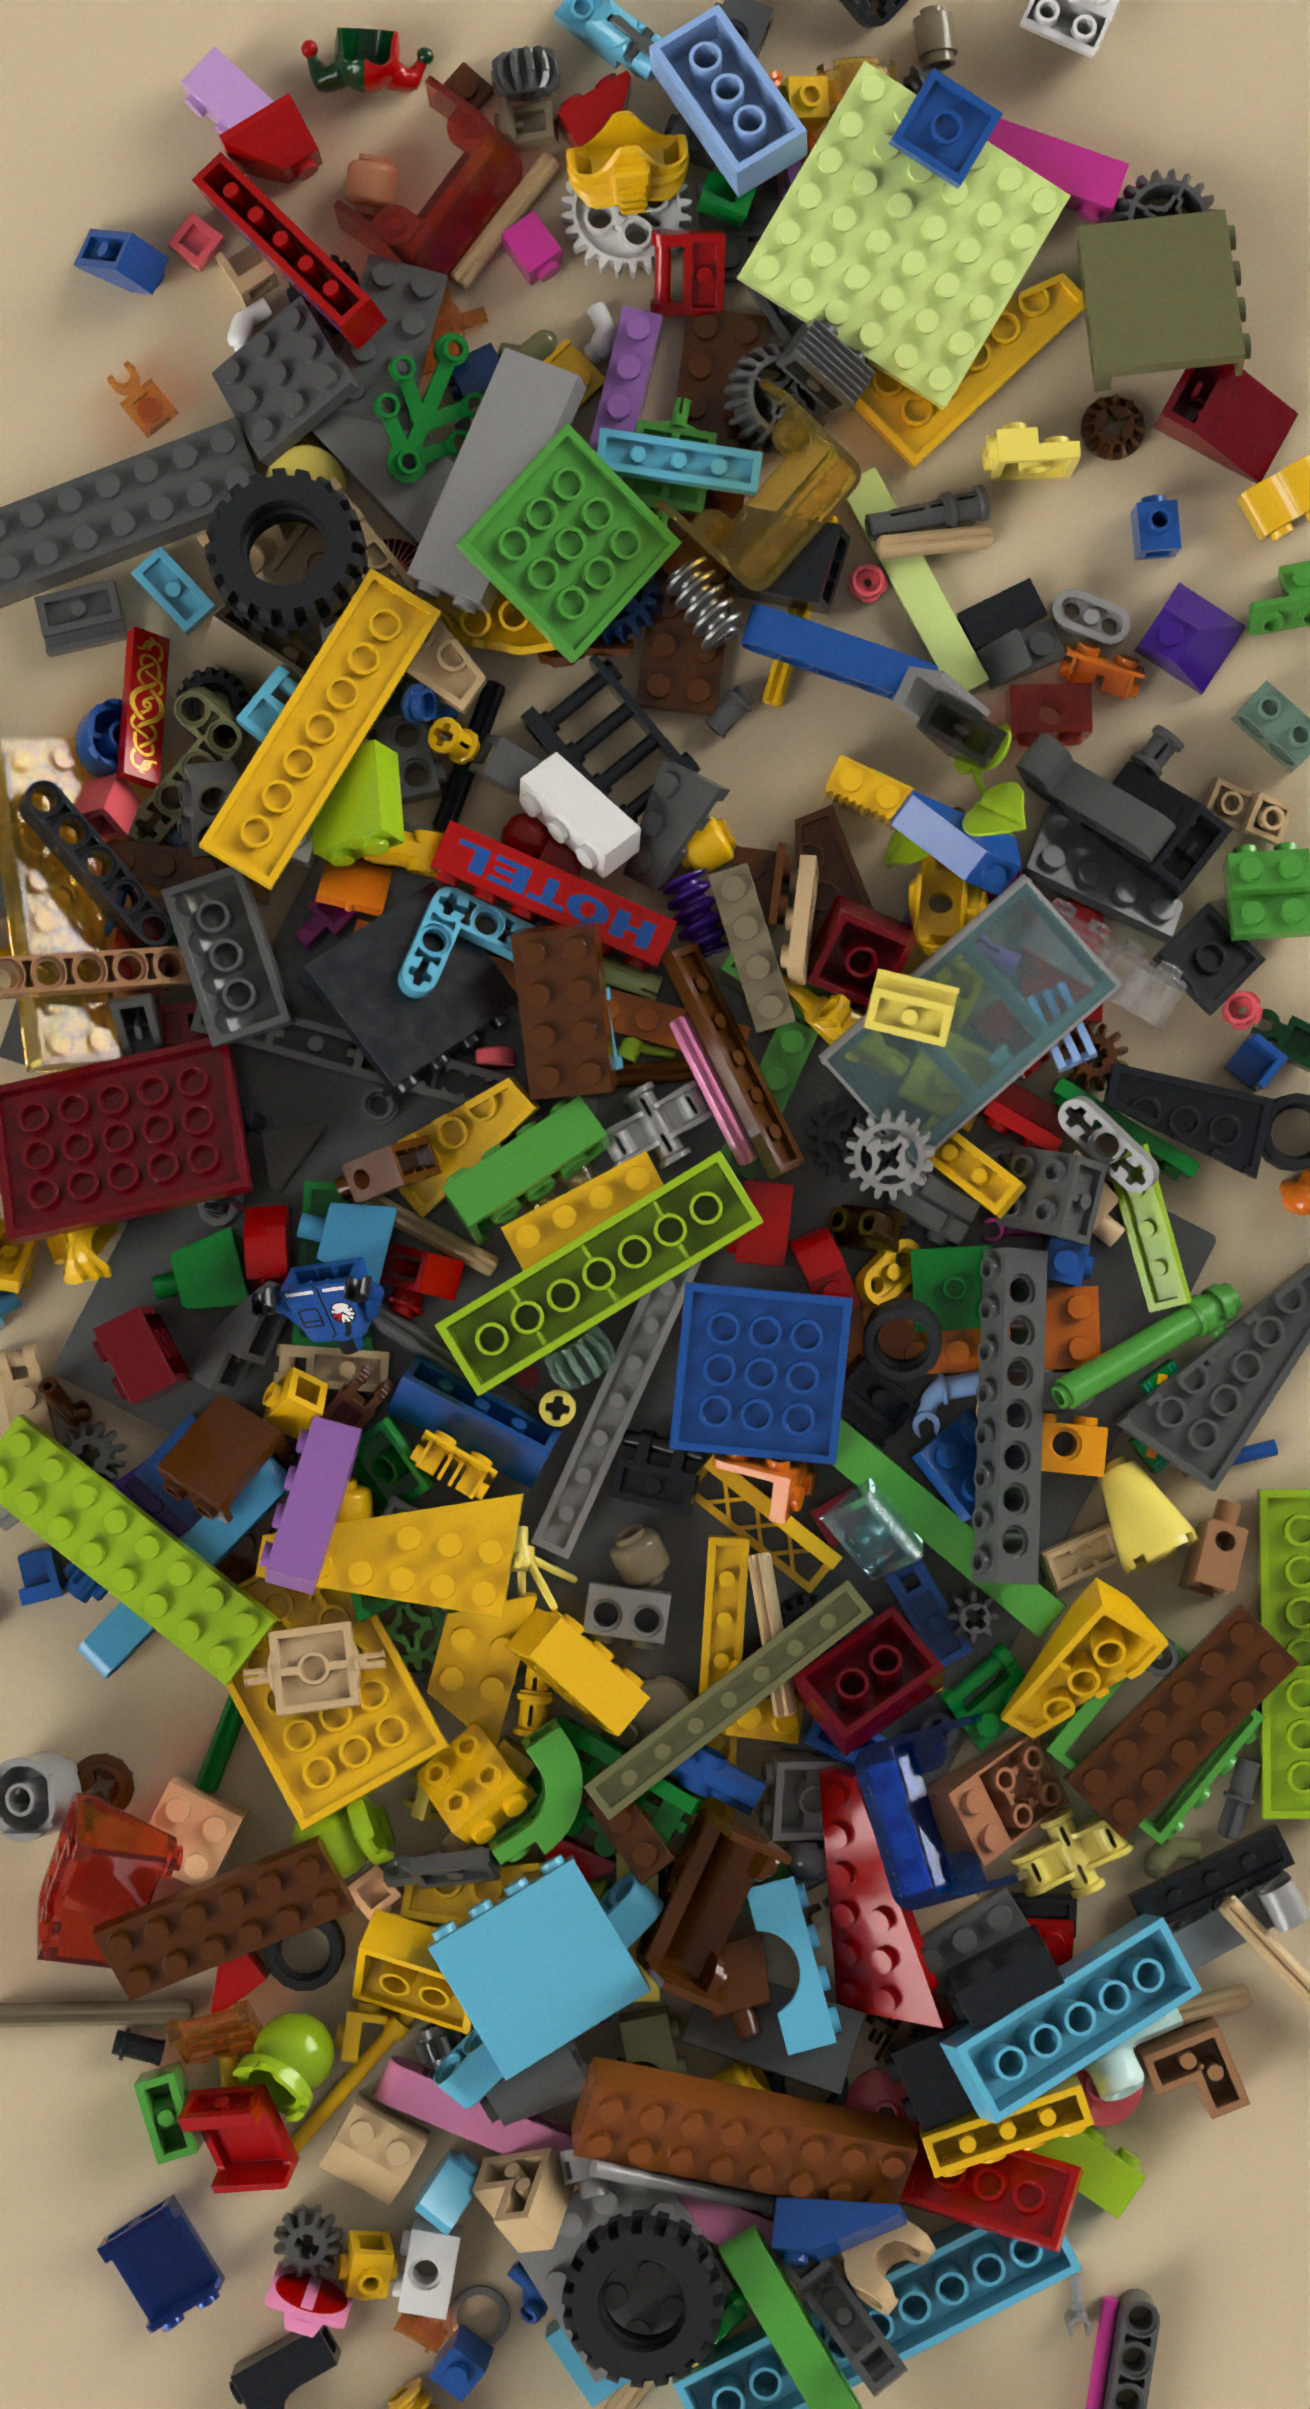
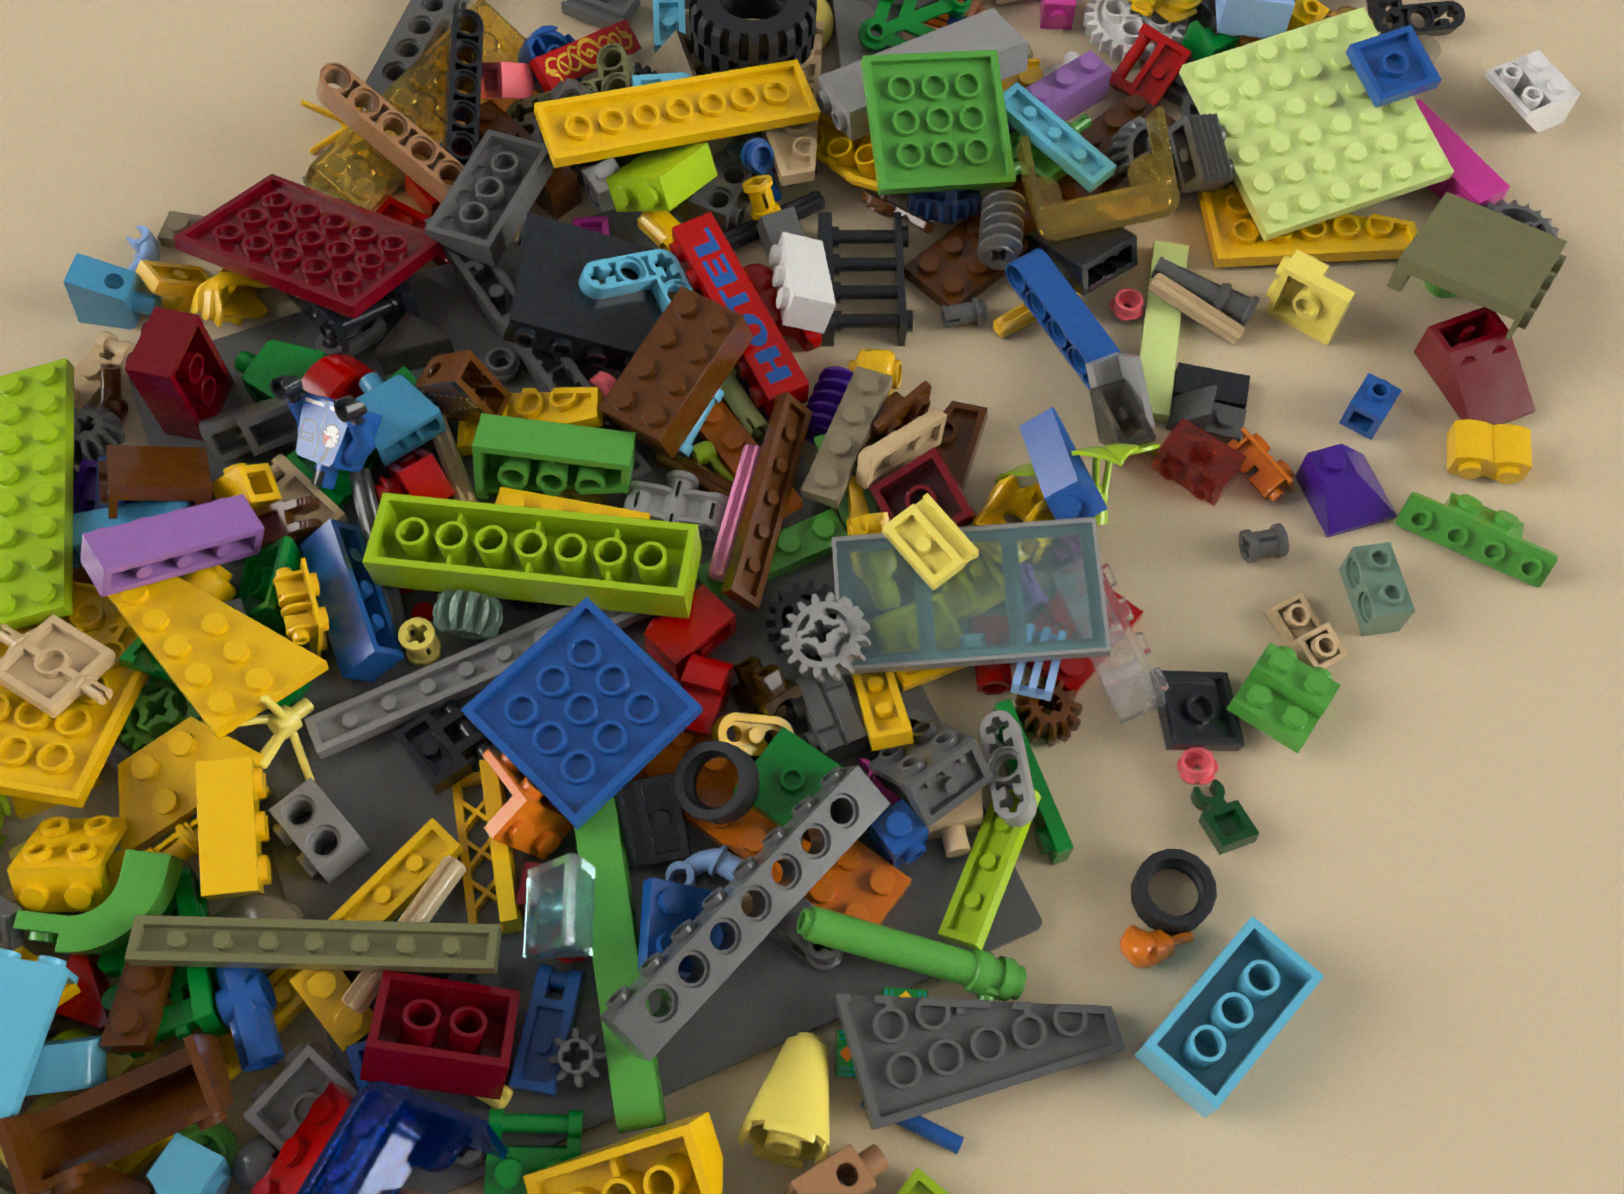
camera: 40 degrees right, 25 degrees down
(138, 1023) = (402, 197): dark grey slope -> none
(355, 887) = (613, 223): orange piece -> none
(639, 1556) = (370, 795): dark tan head -> none
(671, 818) = (870, 328): dark grey wing -> none
(865, 790) = (1009, 406): yellow brick -> none
(1027, 1116) = (954, 702): red bracket -> none
(1079, 1557) = (704, 1090): tan plate -> none
(1088, 1448) = (786, 1007): light orange brick -> none
(1091, 614) = (1280, 428): light grey plate -> none
(1092, 800) = (1185, 525): dark grey beam -> none
(1092, 873) = (1153, 594): dark grey wing -> none
(1107, 444) = (1371, 338): reddish brown gear -> none
(1190, 845) = (1225, 594): black slope -> none
(1200, 1115) = (1103, 810): black wing -> none
(1255, 1062) = (1180, 813): blue panel -> none

